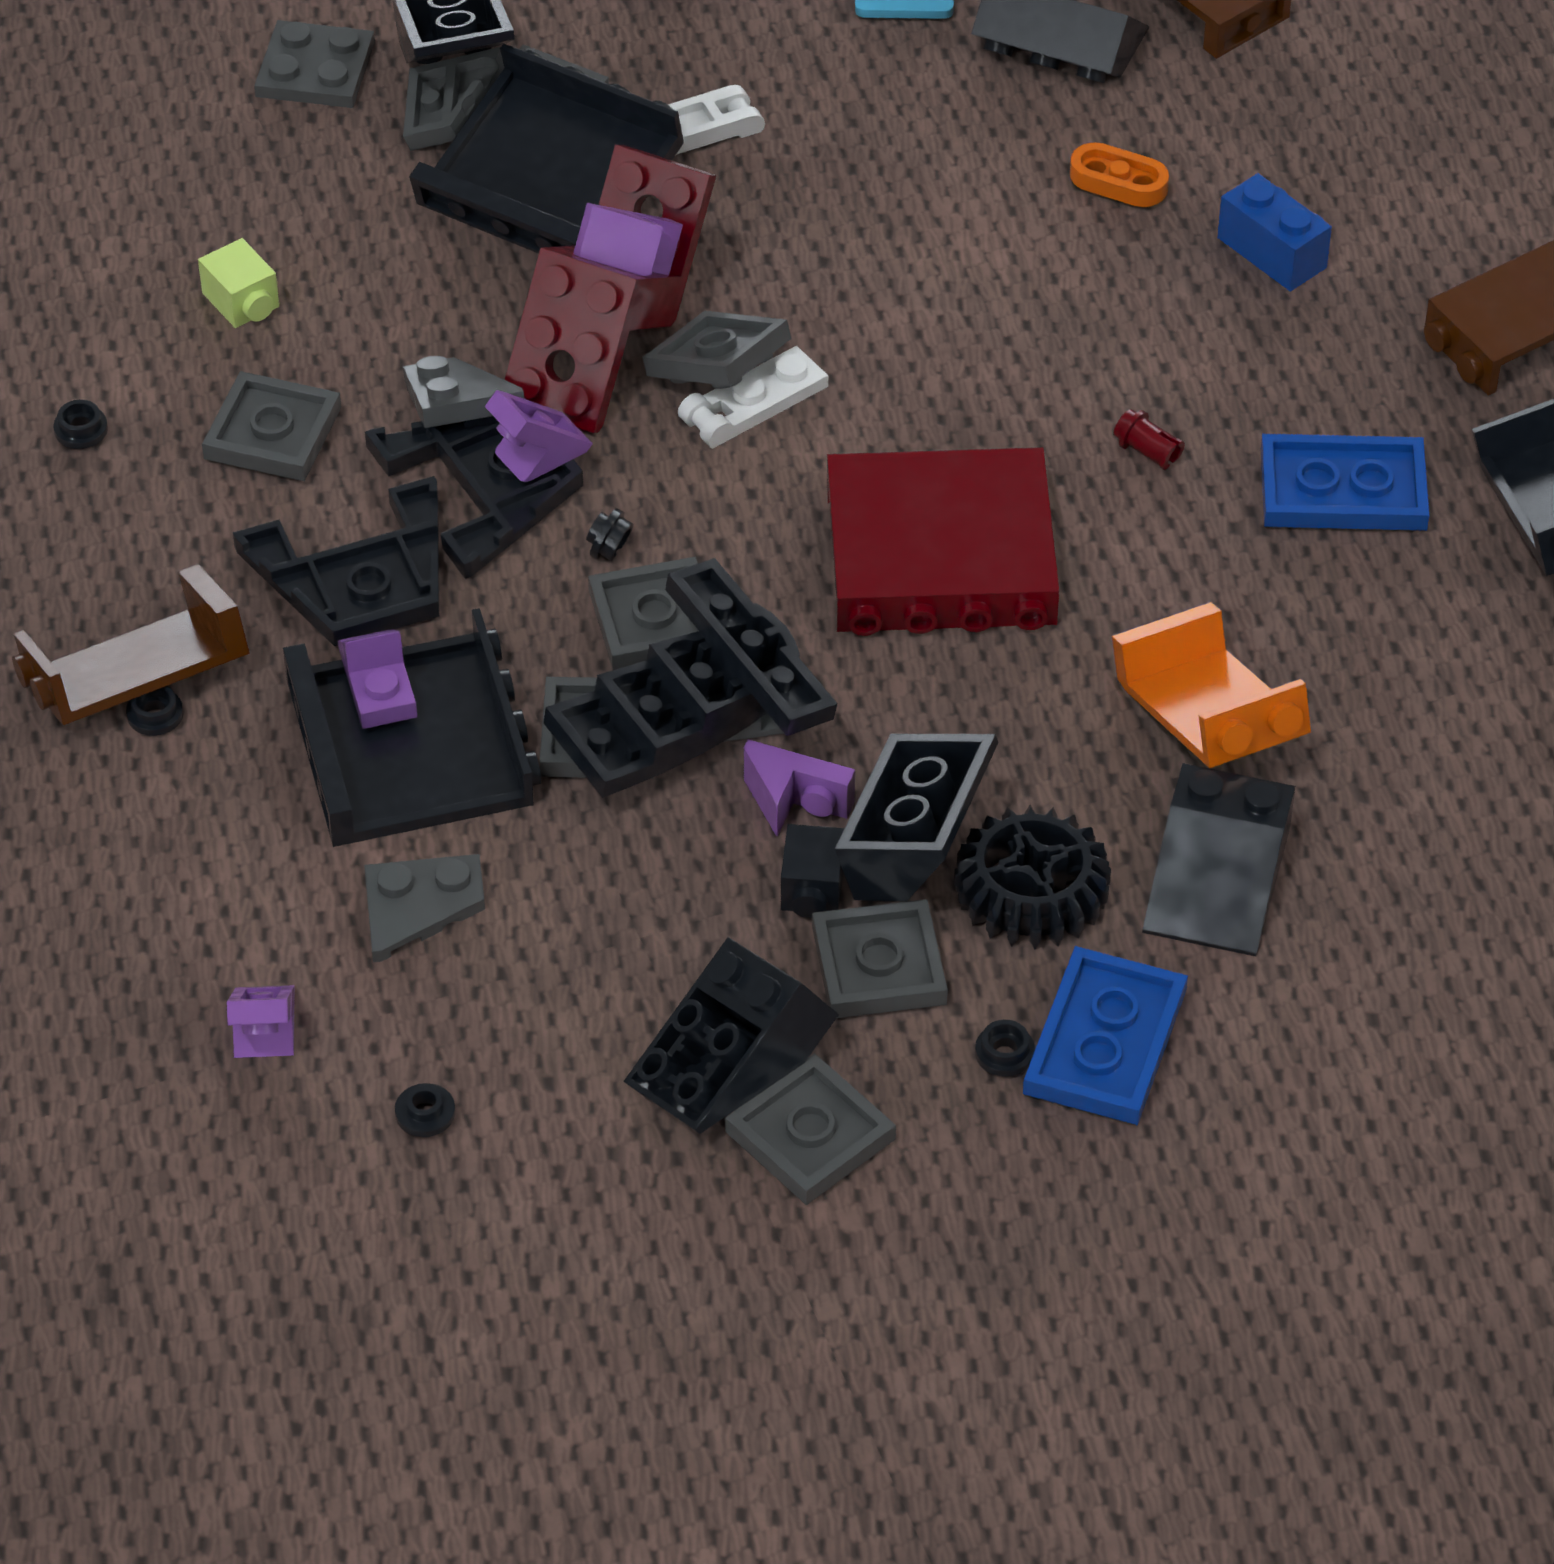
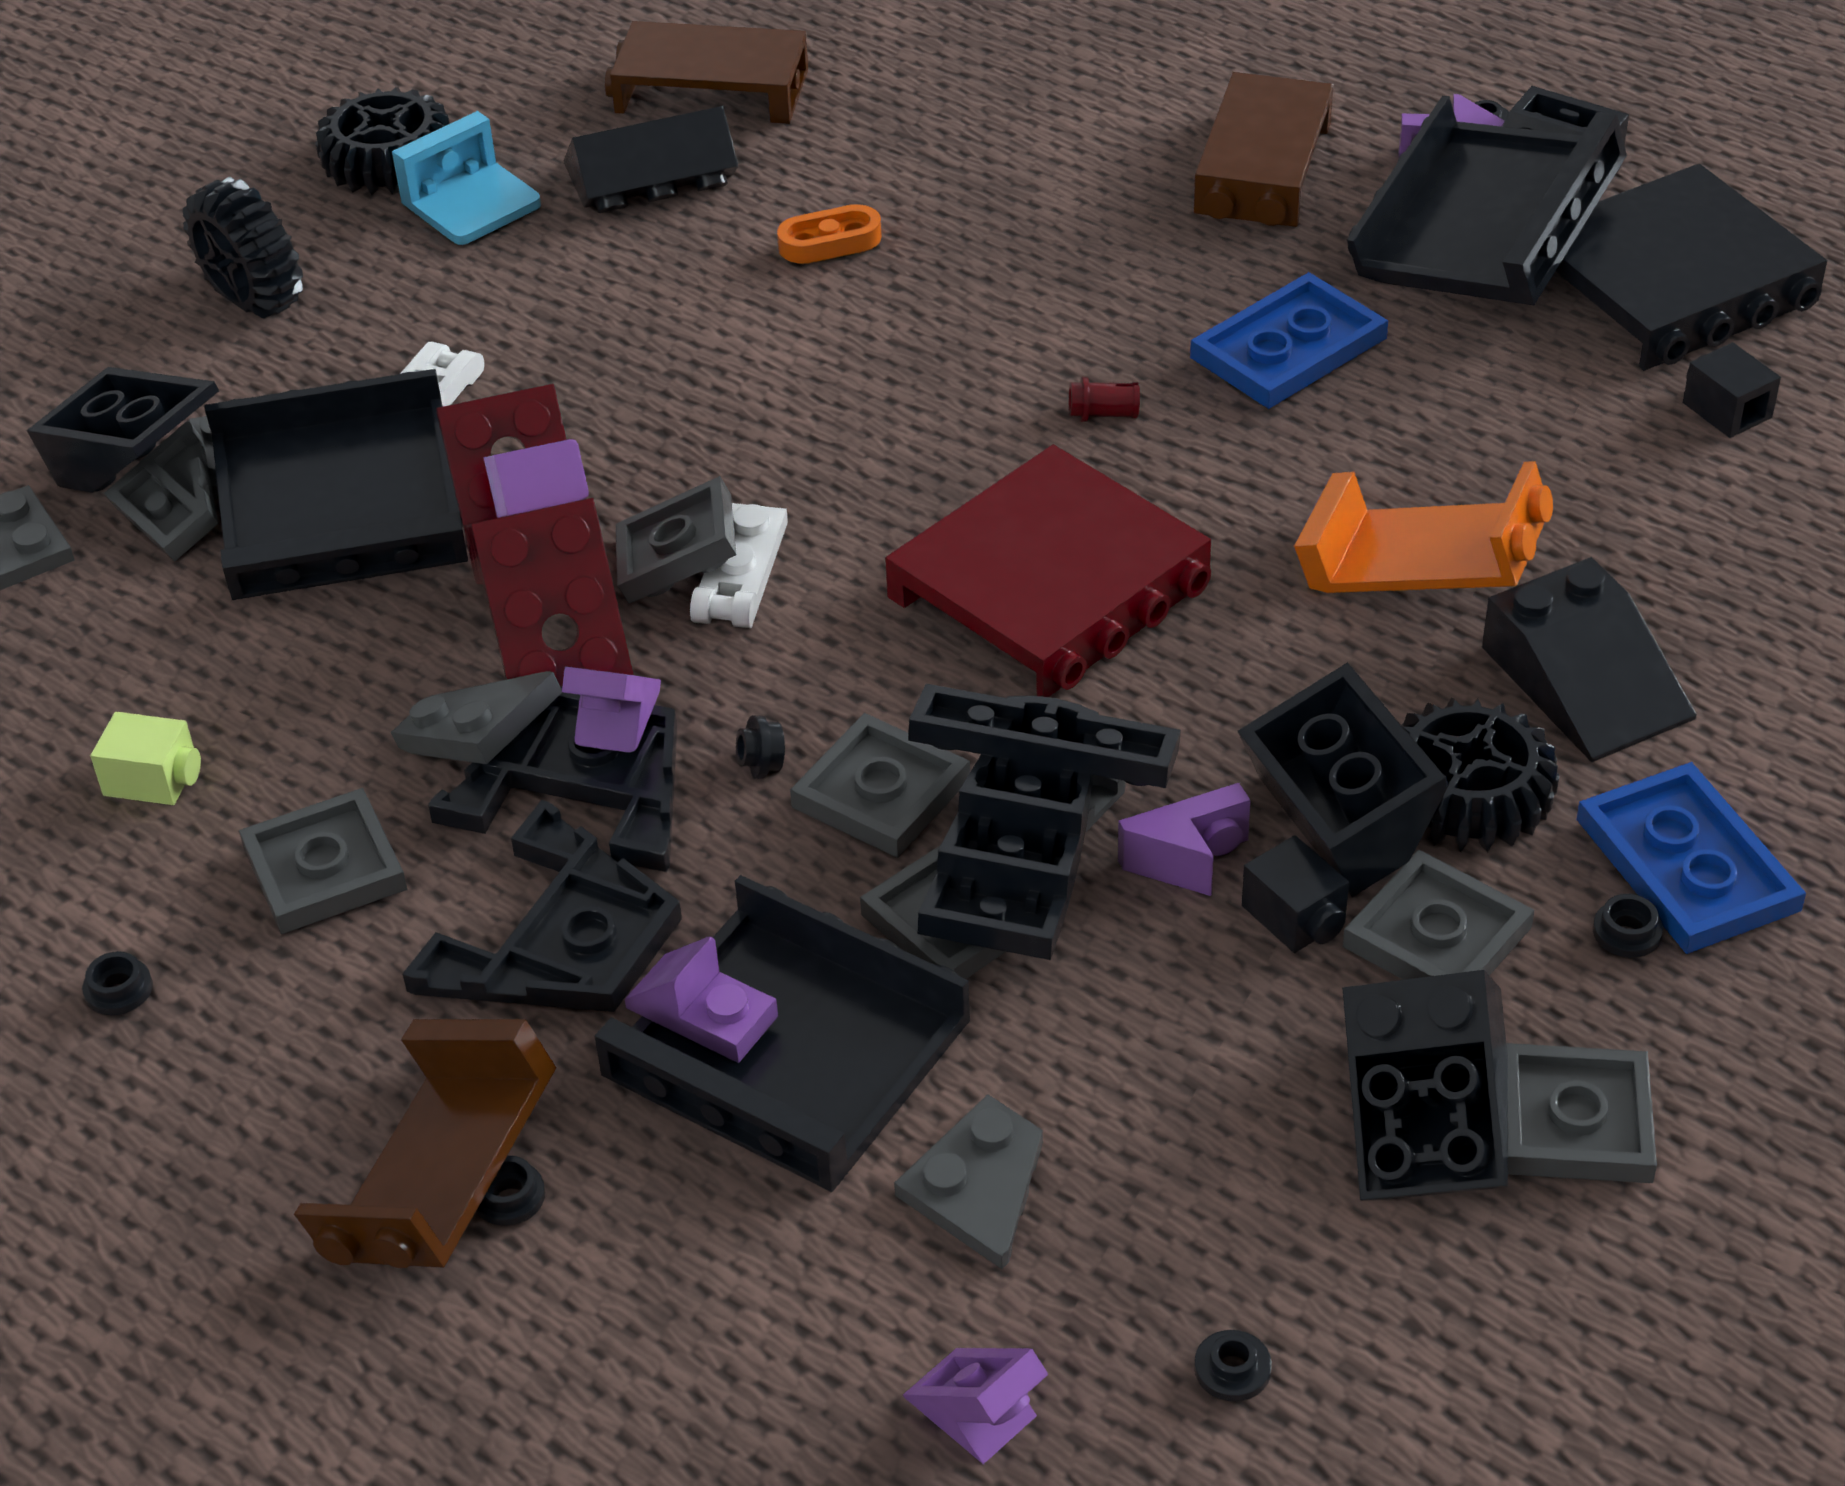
camera: 40 degrees left, 5 degrees down
(1274, 232) = (1009, 200): blue brick -> none

